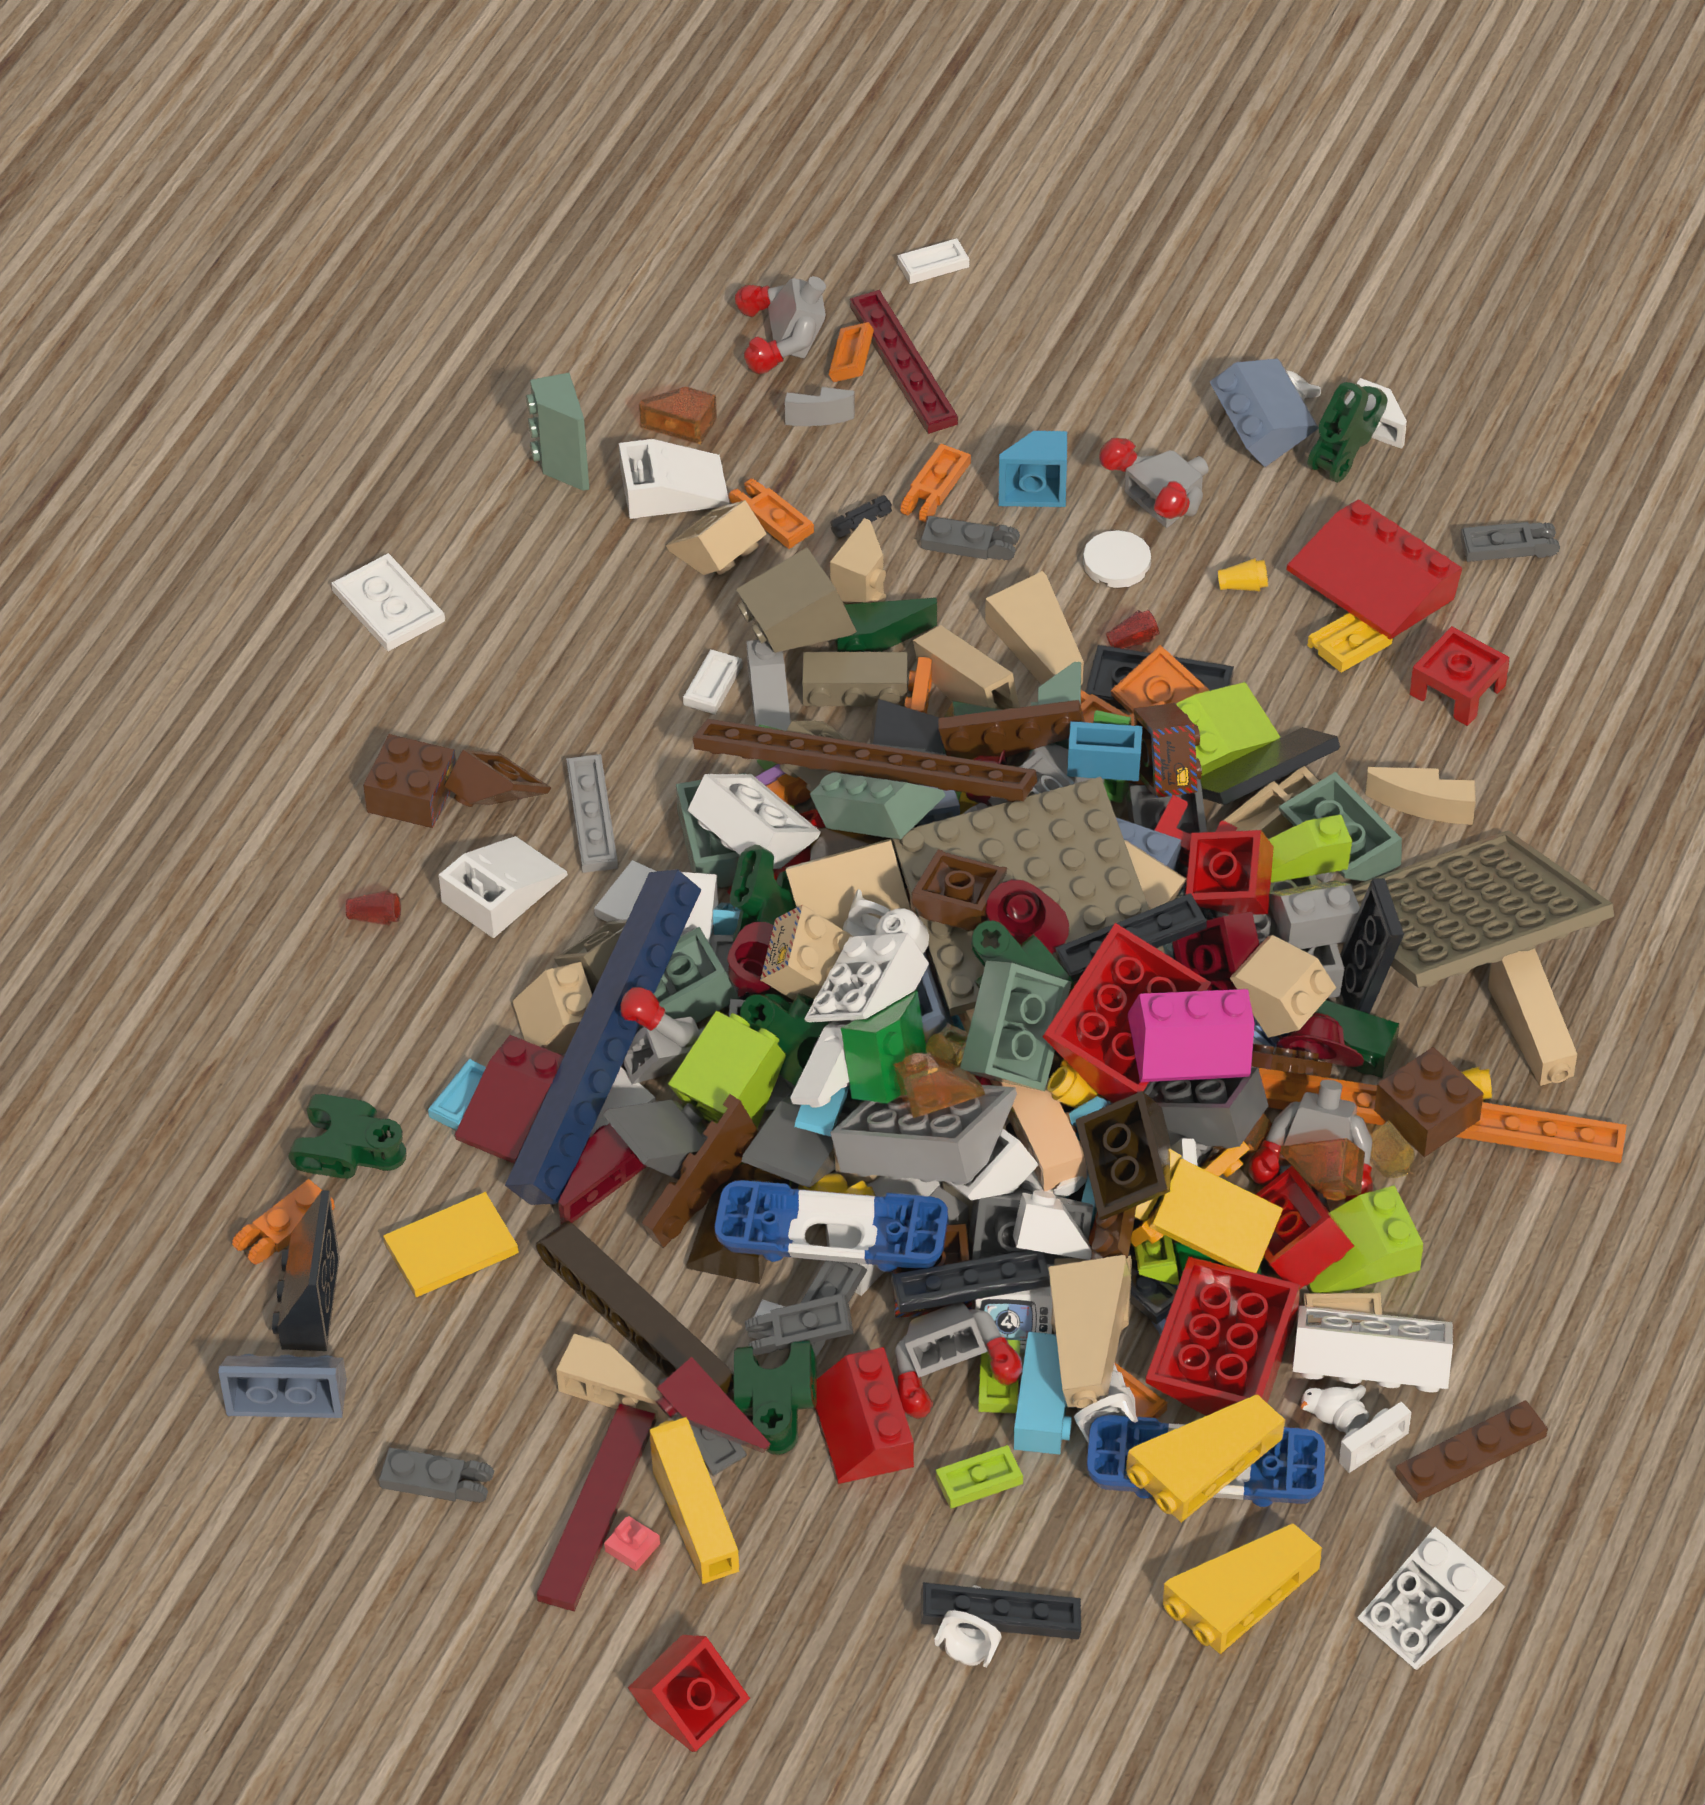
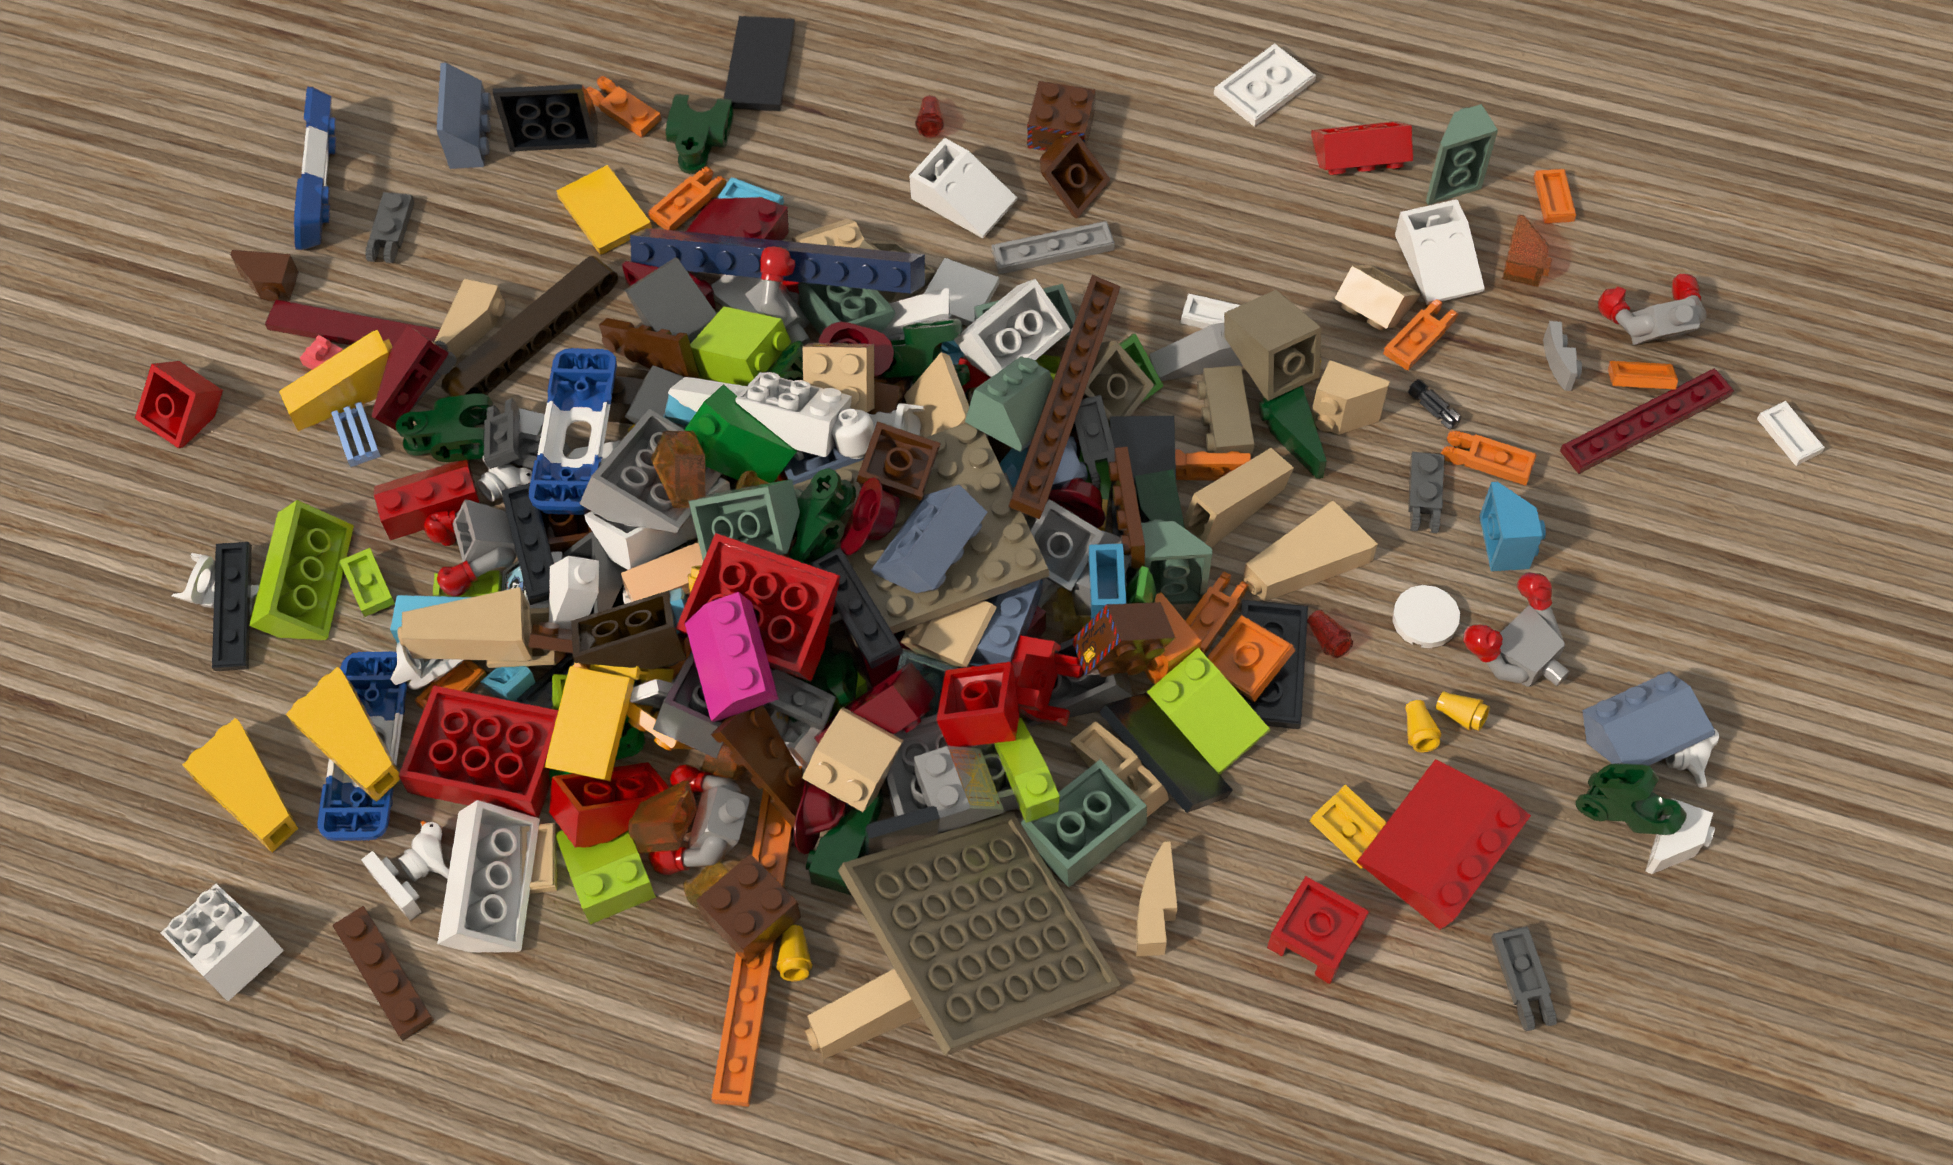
camera: 85 degrees right, 10 degrees up
(241, 1077) = (760, 63): none -> black tile
(279, 1546) = (311, 188): none -> blue piece
(457, 1155) = (686, 199): none -> orange hinge
(496, 1603) = (267, 273): none -> reddish brown slope
(503, 523) = (1363, 146): none -> red slope
(603, 383) = (1554, 196): none -> orange tile
(757, 1495) = (349, 415): none -> light blue tile
(859, 1341) = (502, 478): none -> white animal
(961, 1544) = (302, 573): none -> lime slope
(1064, 862) = (931, 540): none -> sand blue slope
(1143, 1328) = (508, 682): none -> medium azure slope
(1231, 540) = (1464, 710): none -> yellow cone

